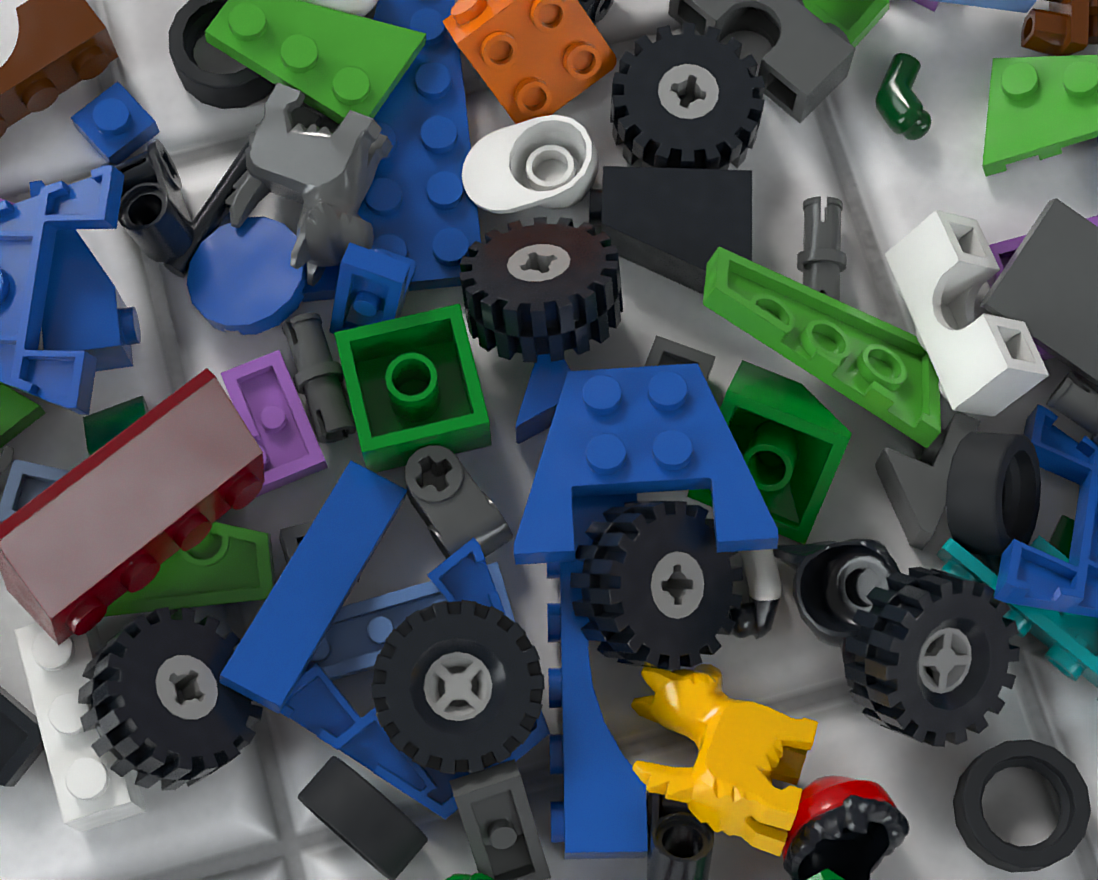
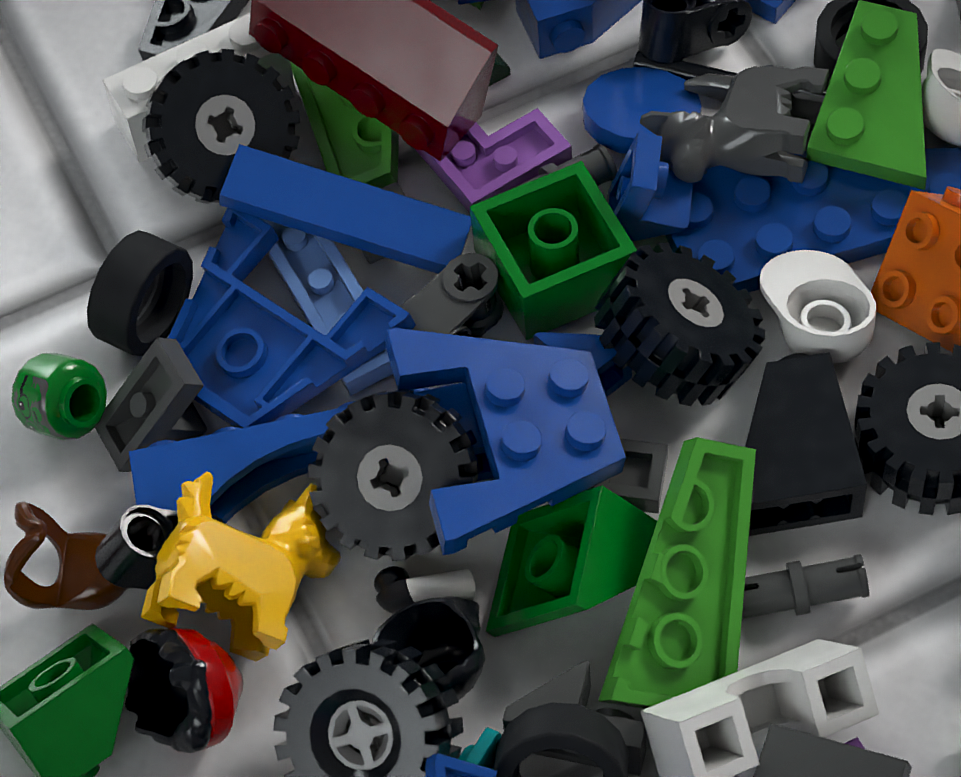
camera: 85 degrees right, 15 degrees down
(457, 686) = (256, 296): black wheel -> none

